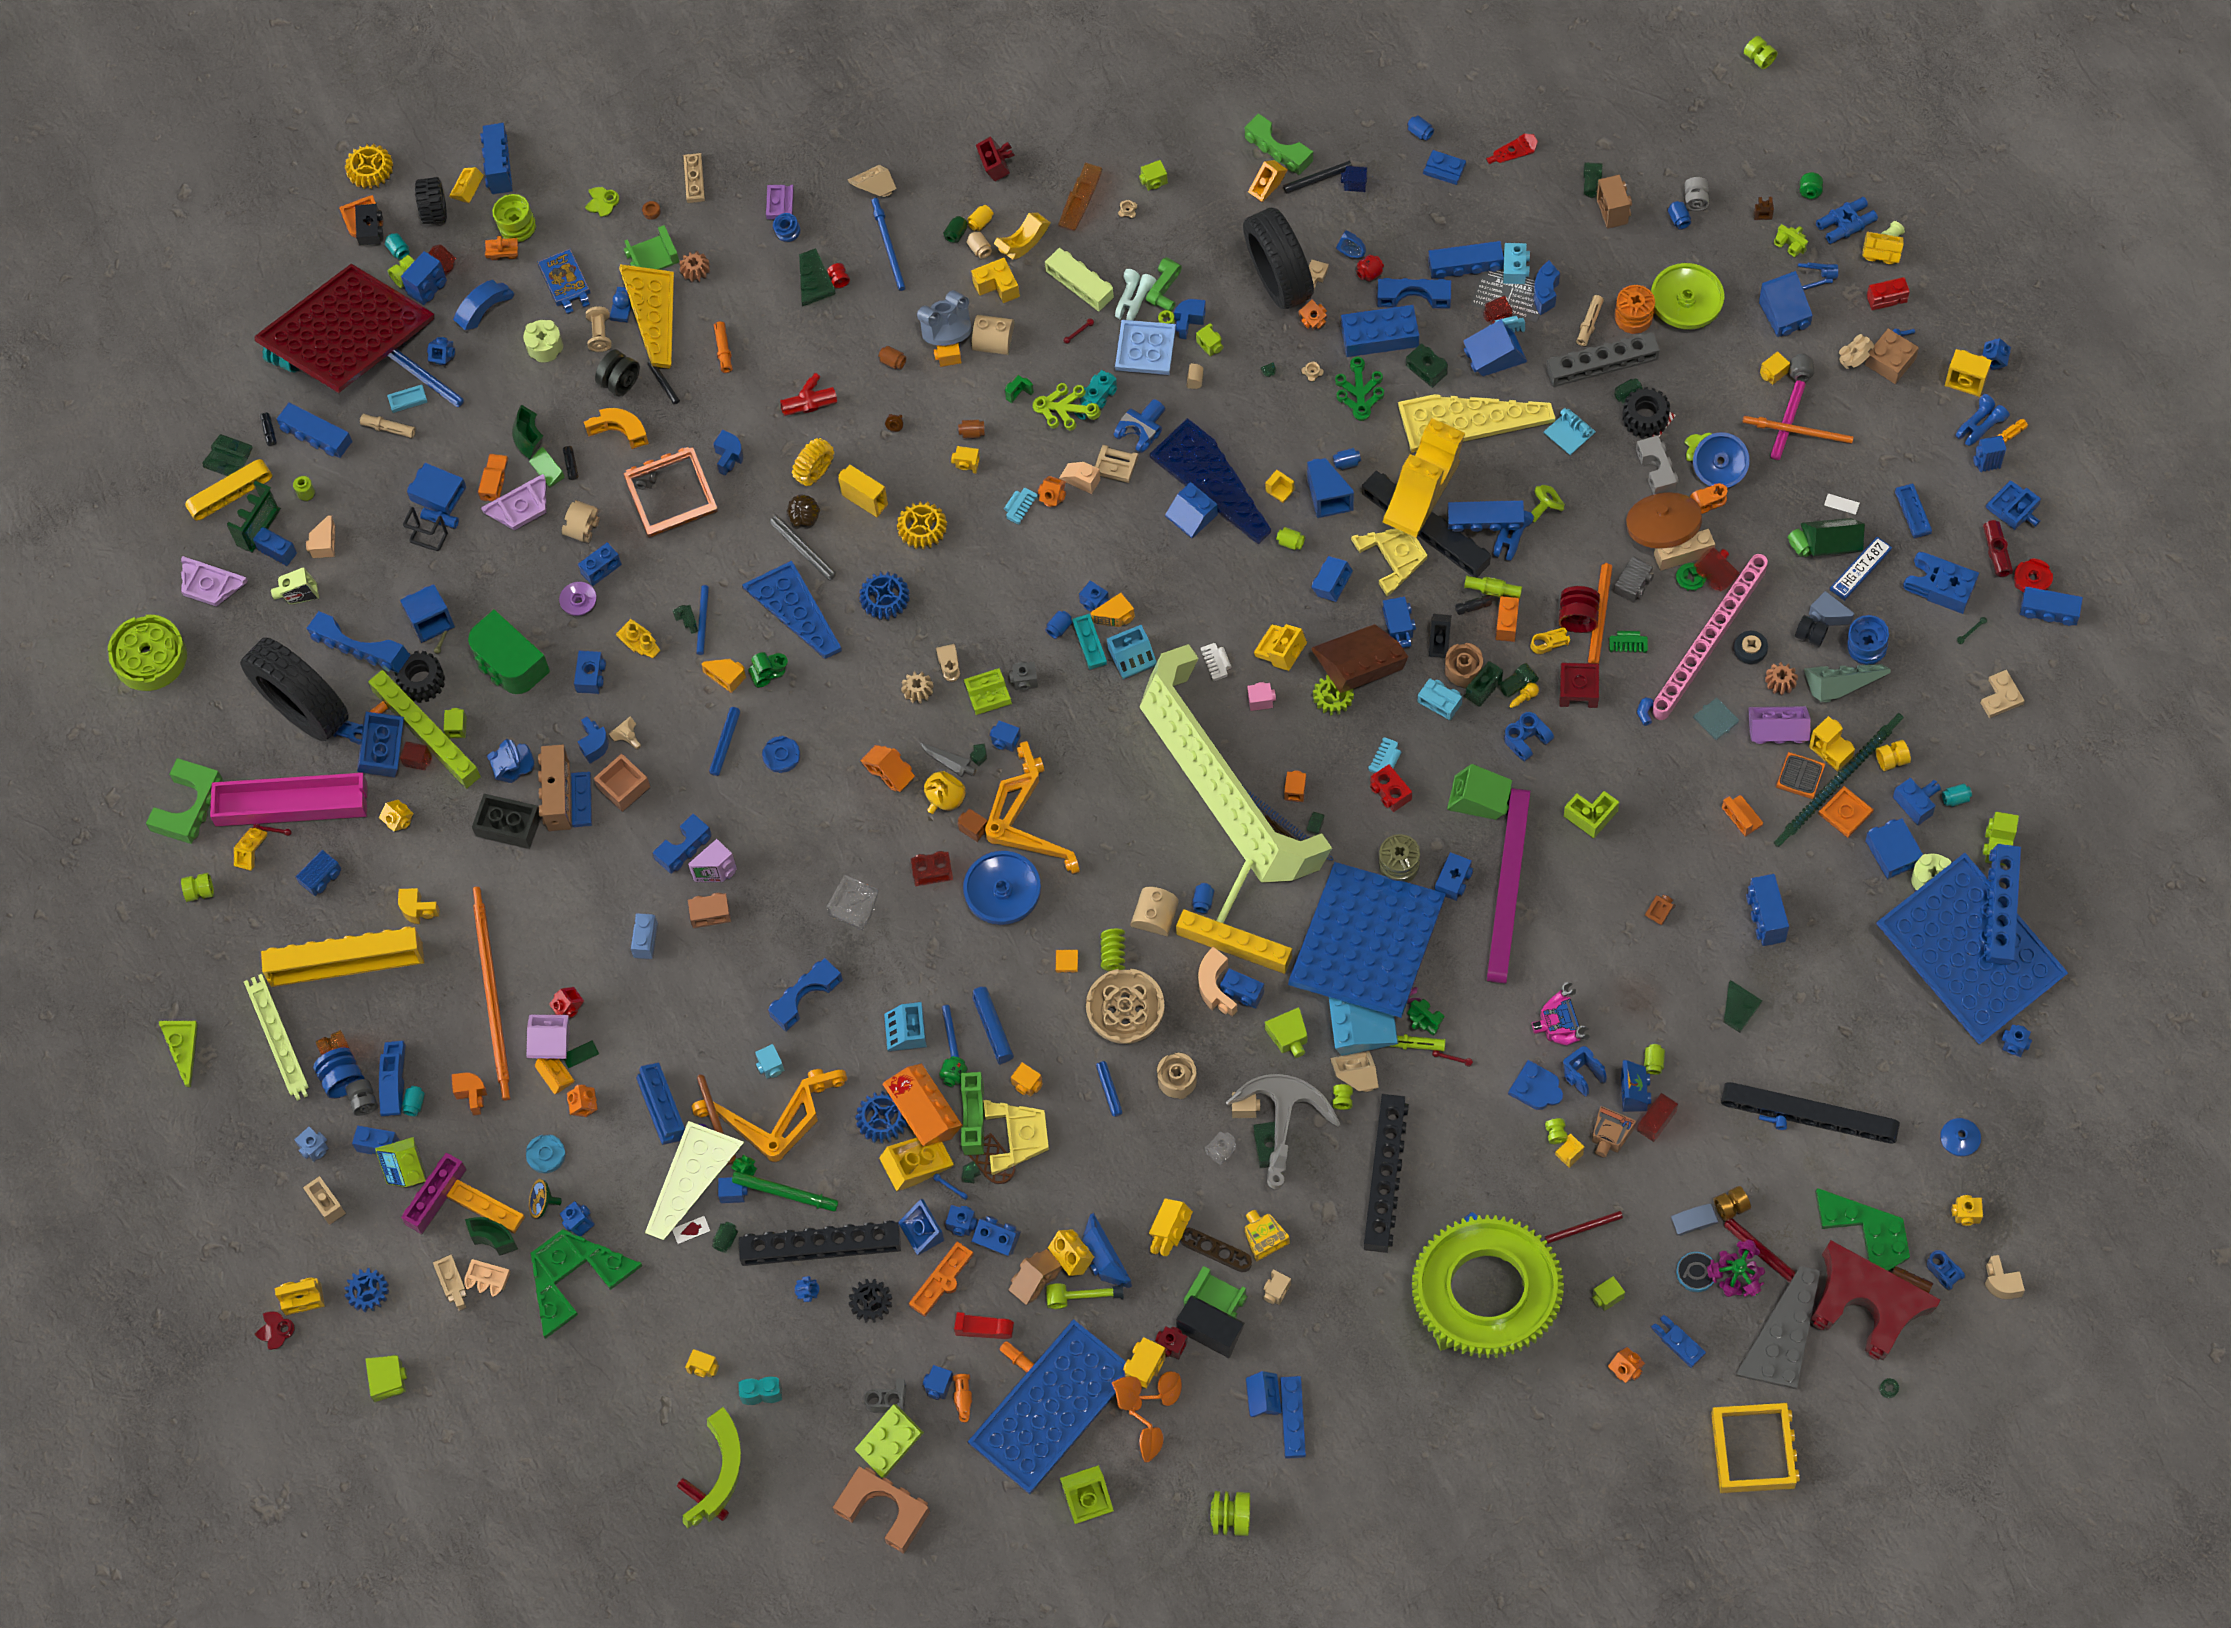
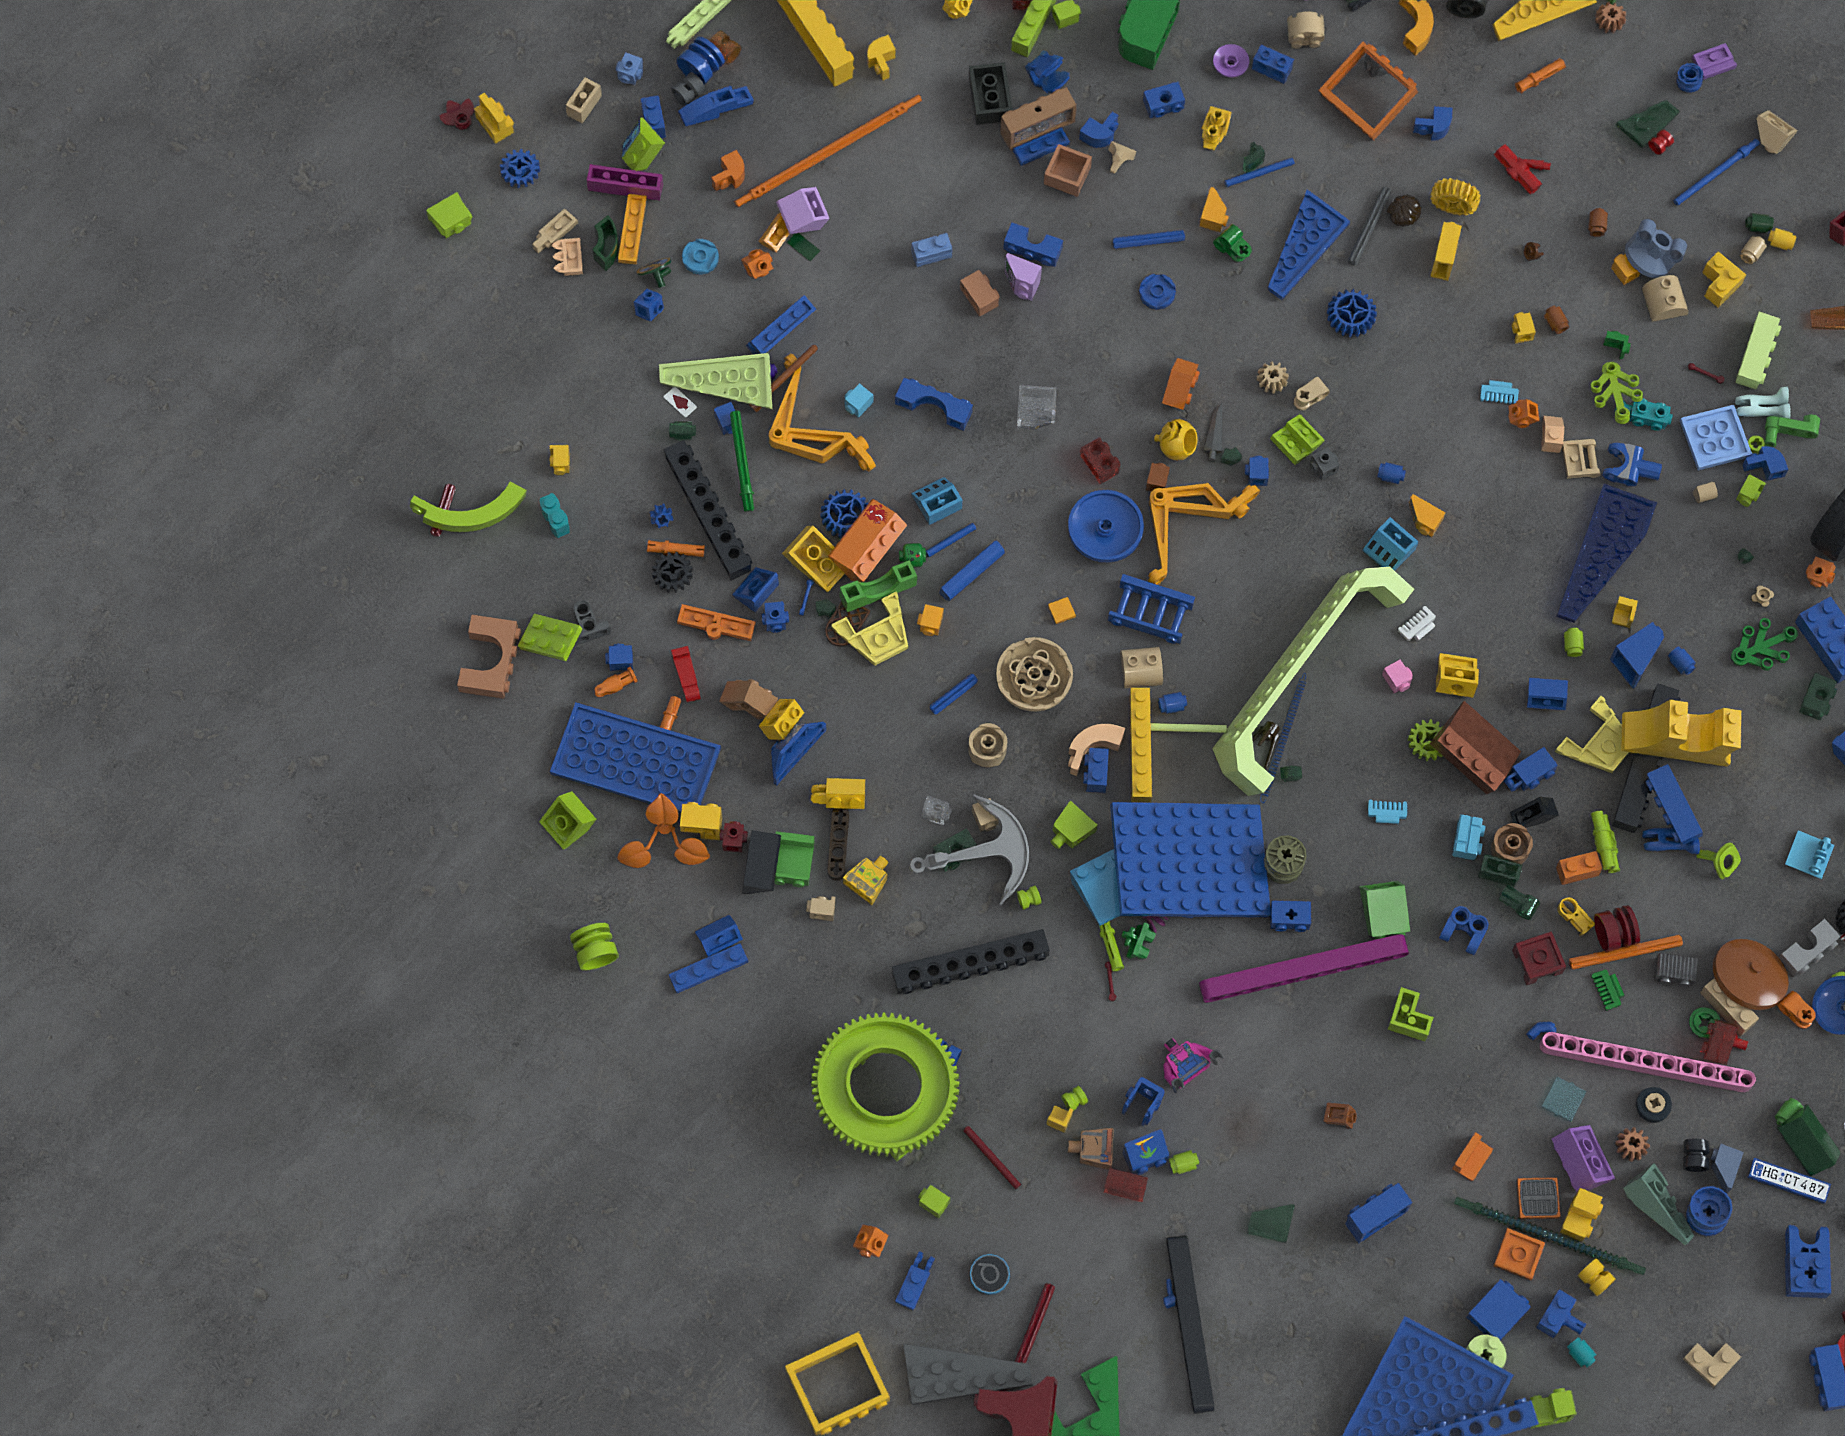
camera: 60 degrees right, 5 degrees up
(412, 1101) = (702, 131): teal brick -> none
(561, 1257) = (609, 307): green wing -> none
(566, 1002) = (842, 213): red brick -> none
(664, 383) = (1480, 43): black piece -> none
(744, 1165) = (751, 419): green gear -> none
(842, 1295) = (682, 549): none -> orange pin
(919, 534) = (1449, 324): yellow gear -> none
(996, 1235) = (772, 651): blue brick -> none
(1025, 237) = (1778, 286): yellow arch -> none
(1058, 1296) = (739, 726): lime piece -> none
(1089, 641) = (1386, 506): teal plate -> none
(1093, 596) = (1432, 491): blue brick -> none
(1095, 863) = (1148, 591): none -> blue fence
(1111, 949) = (1086, 644): lime piece -> none
(1192, 510) = (1562, 543): blue slope -> none
(1295, 786) = (1320, 741): orange brick -> none
(1356, 1070) = (1059, 899): tan slope -> none
(1394, 786) = (1359, 828): red brick -> none
(1472, 416) = (1776, 751): light yellow wing -> none
(1473, 604) = (1581, 832): black axle -> none
(1530, 690) = (1515, 916): yellow bar -> none
(1536, 1087) = (1112, 1066): blue plate -> none
(1694, 1218) = (1040, 1254): sand blue slope -> none
(1732, 1203) = (1068, 1282): pearl gold wheel -> none
(1732, 1264) = (1008, 1301): magenta plant -> none
(1960, 640) = (1755, 1303): clear green hinge -> none

